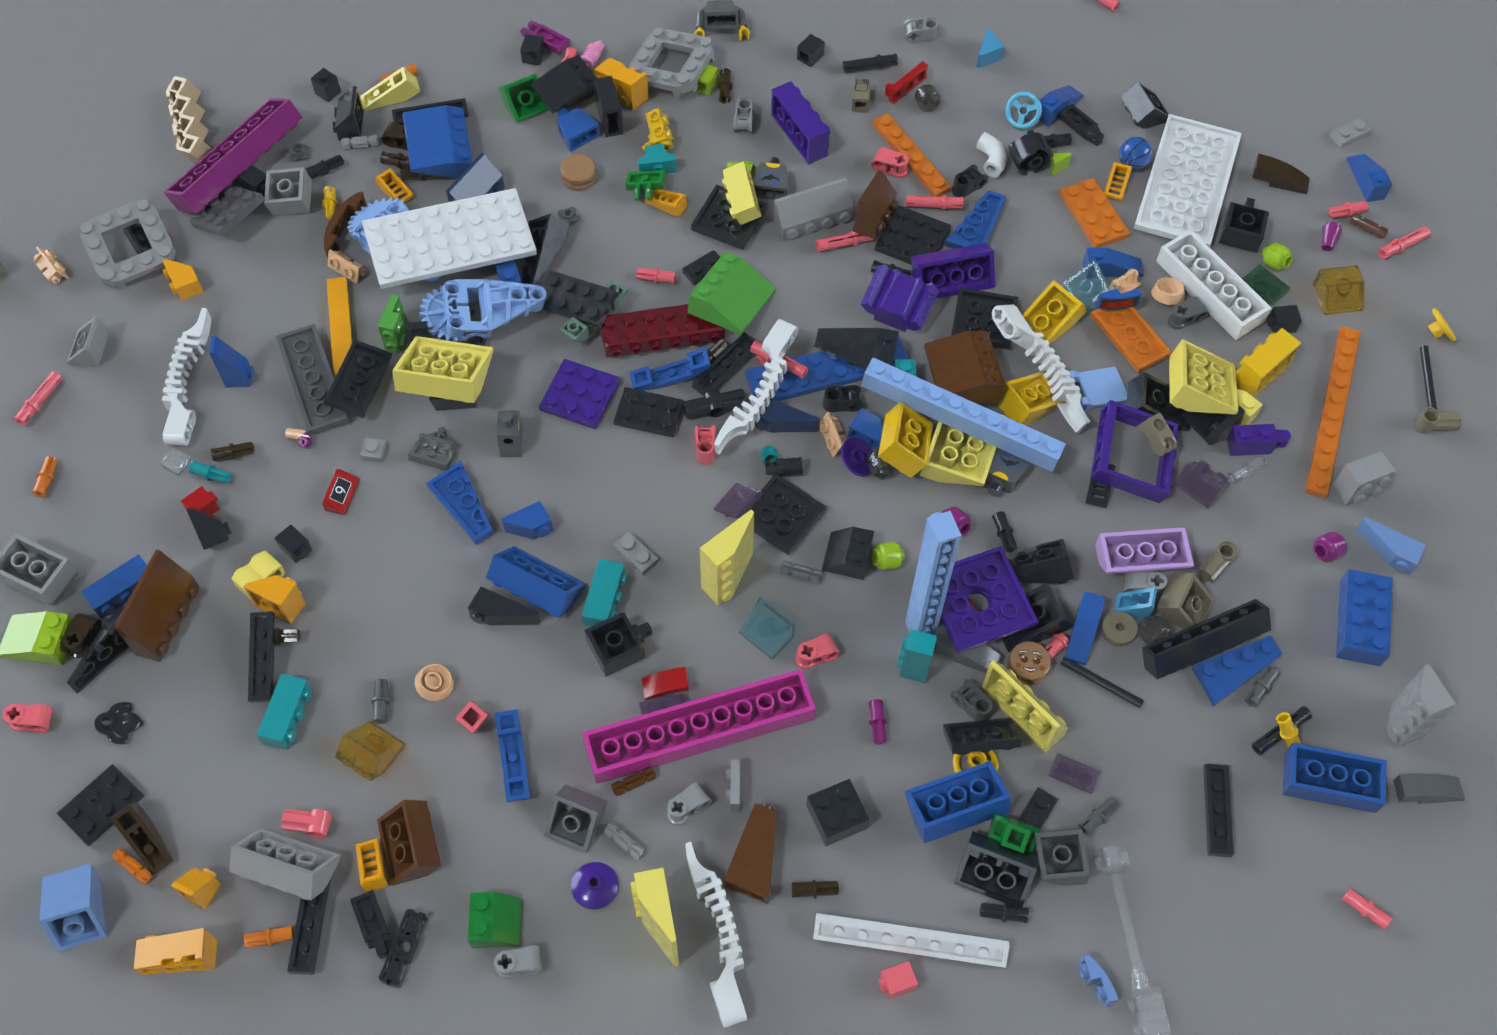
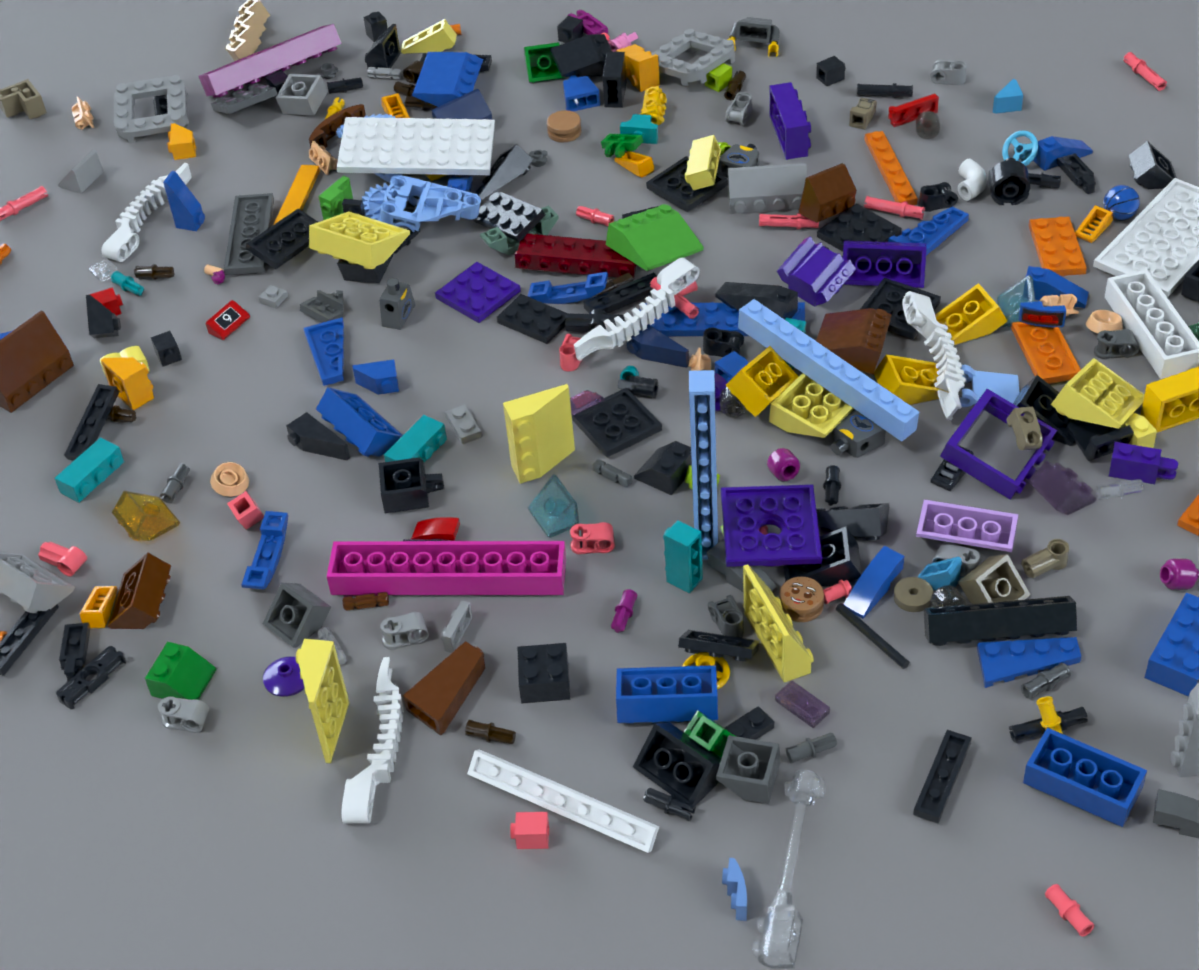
camera: 25 degrees right, 15 degrees down
(890, 161) = (865, 169): coral piece -> none
(1059, 162) = (1039, 198): lime slope -> none

